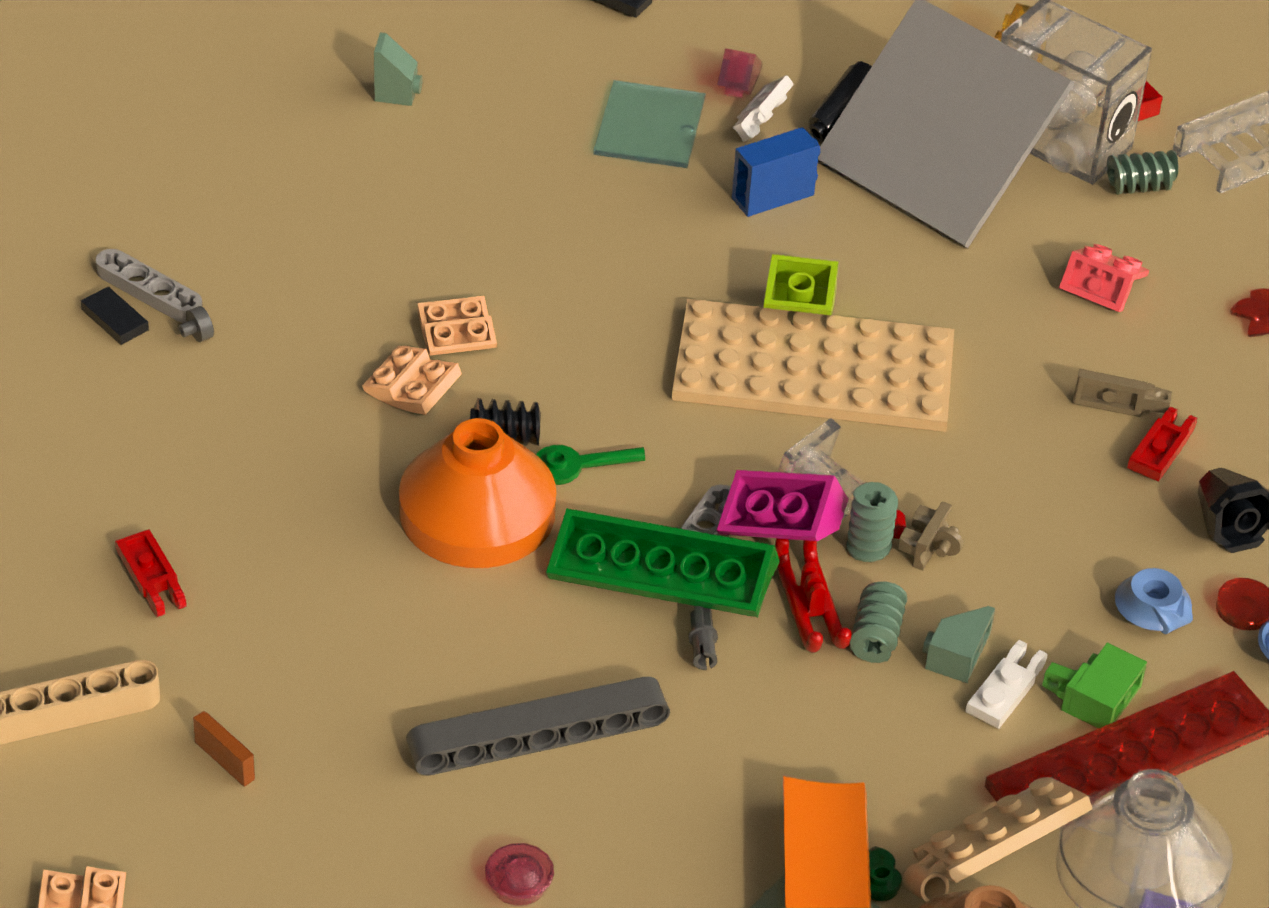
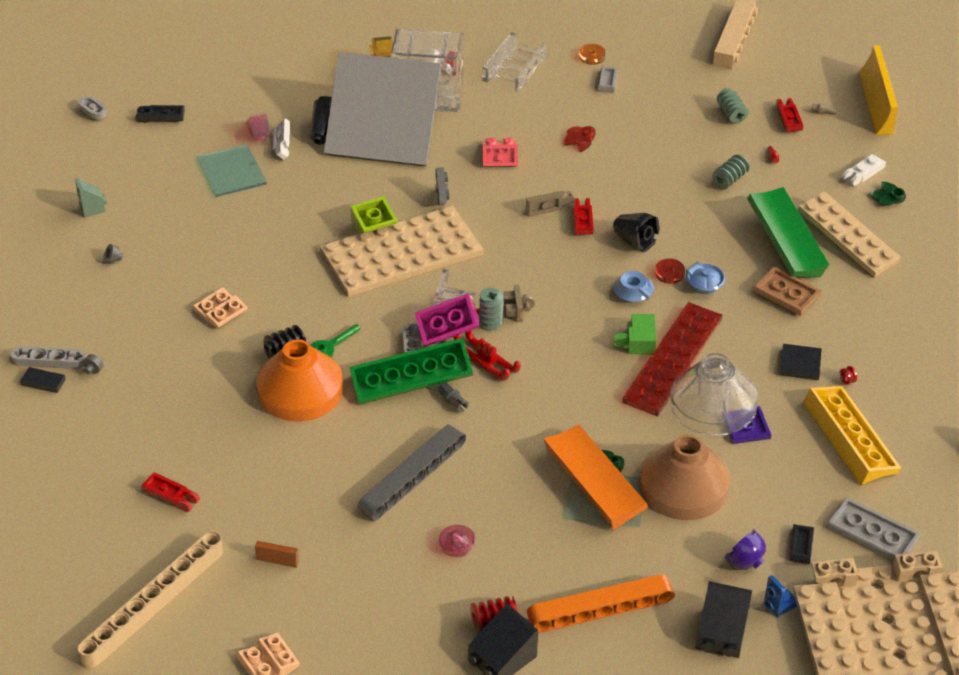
camera: 30 degrees left, 0 degrees up
(363, 172) = (112, 254): none -> dark grey tile
(411, 380) = (219, 344): light nougat slope -> none
(775, 171) = (317, 167): blue brick -> none
(878, 621) = (526, 352): sand green piece -> none
(952, 288) = (440, 187): none -> dark grey hinge
(958, 643) = (567, 345): sand green slope -> none
(992, 835) = (650, 419): tan hinge -> none
(1005, 686) = (599, 355): white hinge -> none
(1142, 170) = (481, 95): sand green piece -> none

